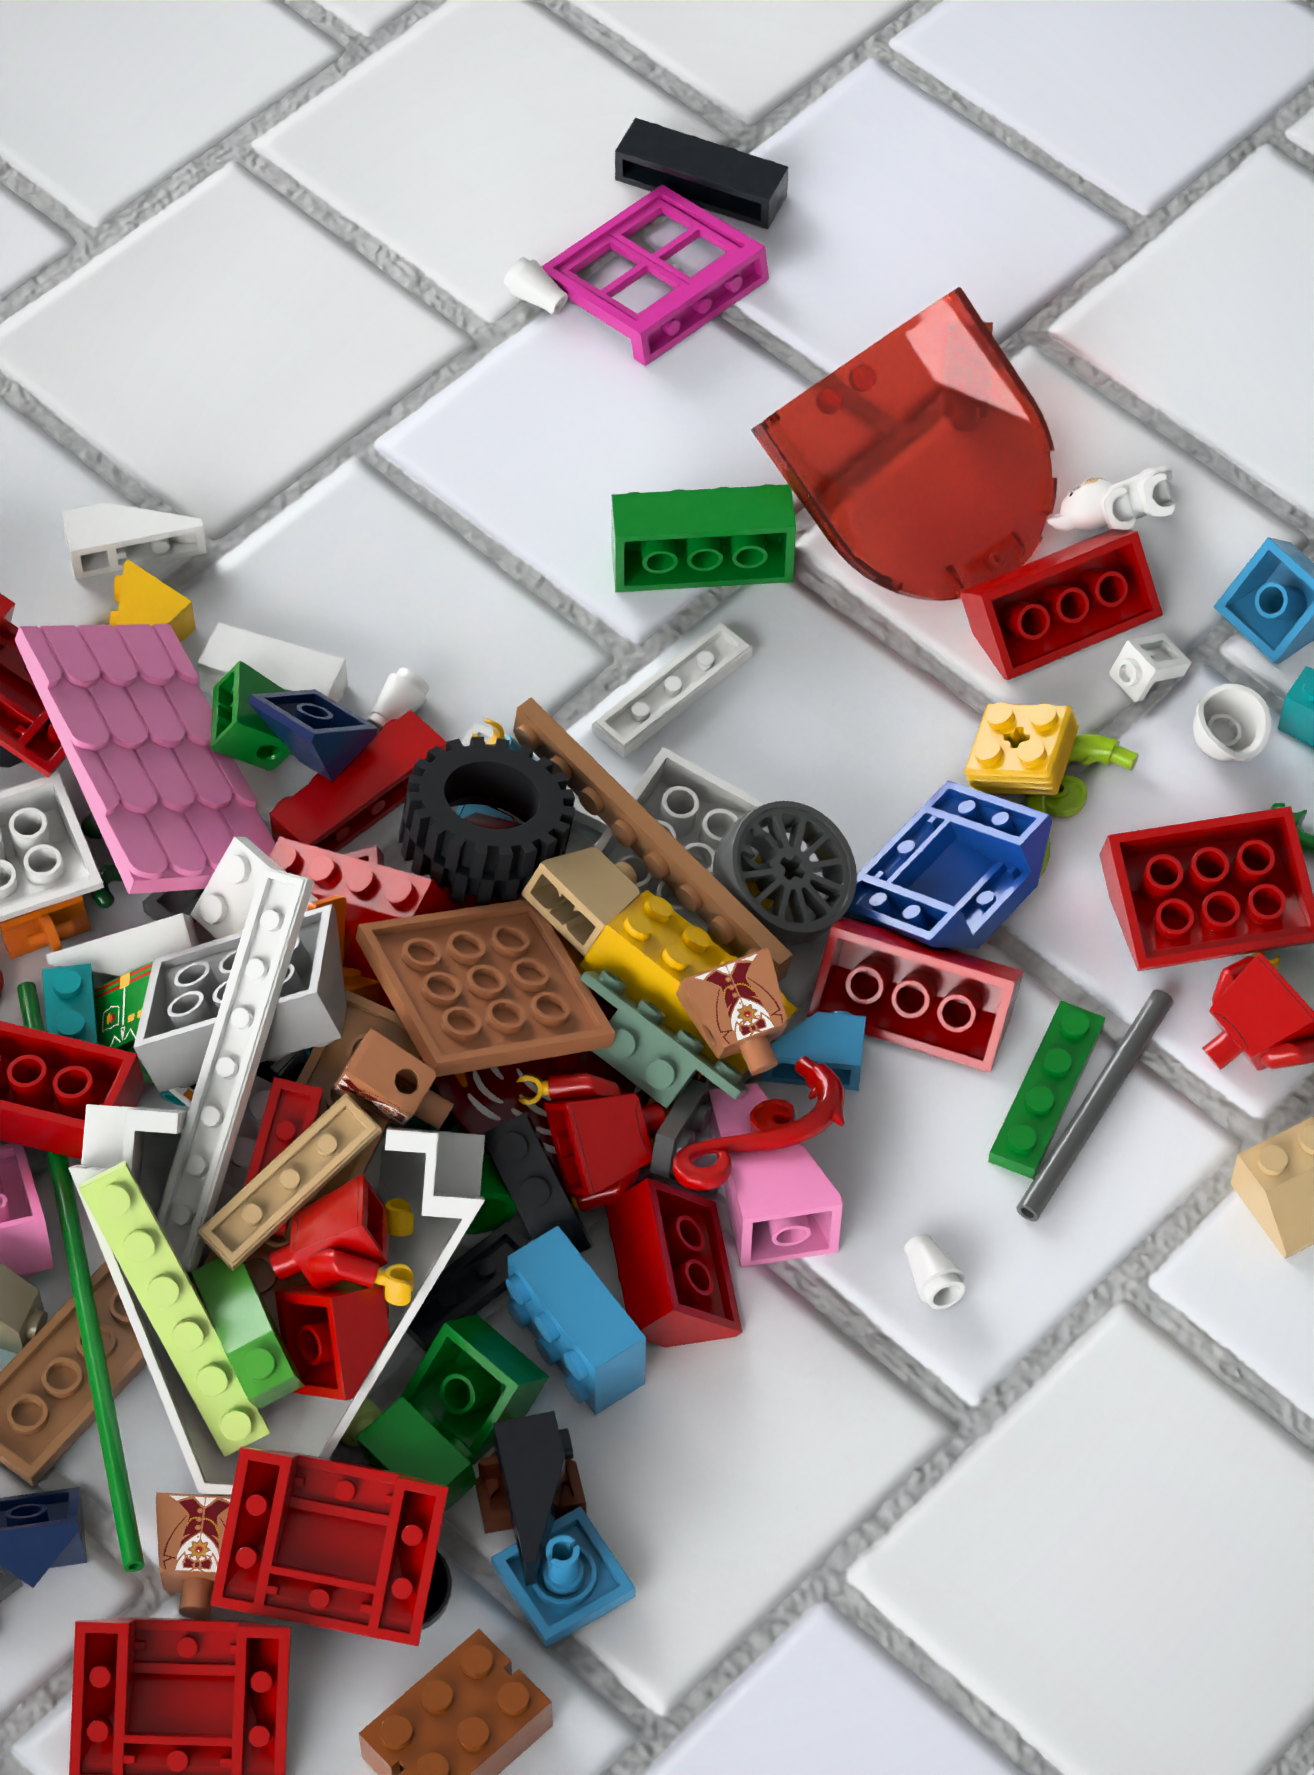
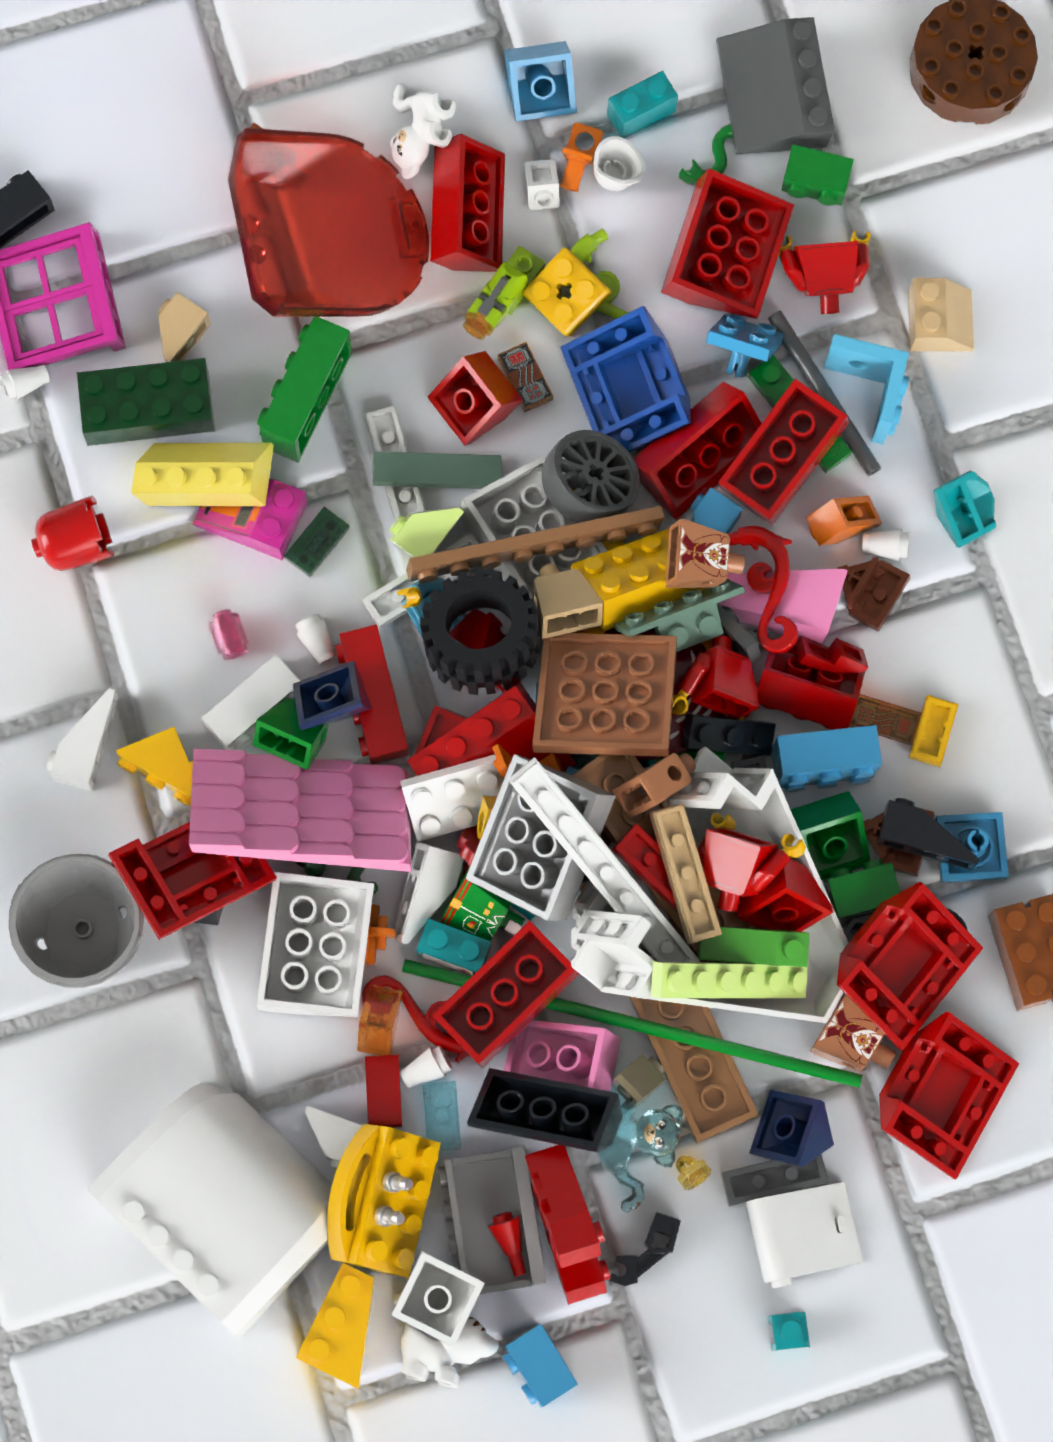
camera: 65 degrees left, 20 degrees up
(346, 613) = (228, 634): none -> clear pink brick
(374, 406) = (72, 536): none -> red cylinder
(519, 573) = (258, 527): none -> dark pink slope
(524, 652) = (317, 541): none -> clear green tile
(525, 487) = (203, 474): none -> light yellow slope
(585, 404) = (145, 401): none -> dark green brick
(599, 727) = (423, 531): none -> yellowish green slope
(685, 1388) = (891, 720): none -> clear orange tile
(691, 716) = (435, 470): none -> sand green tile
(695, 396) = (181, 326): none -> tan slope
(703, 1451) = (933, 731): none -> yellow plate
(735, 1288) = (838, 658): none -> red slope
(819, 719) = (474, 397): none -> red slope
(857, 1287) = (873, 591): none -> copper slope
(883, 766) = (525, 376): none -> tile
(932, 1200) = (842, 519): none -> orange slope
(968, 680) = (502, 293): none -> lime plate
(968, 1073) = (783, 452): none -> red brick
(1051, 1343) = (965, 508): none -> teal slope
(1094, 964) = (744, 341): none -> dark azure plate
(1147, 1161) = (875, 364): none -> medium azure bracket
(1194, 686) = (578, 158): none -> orange bracket

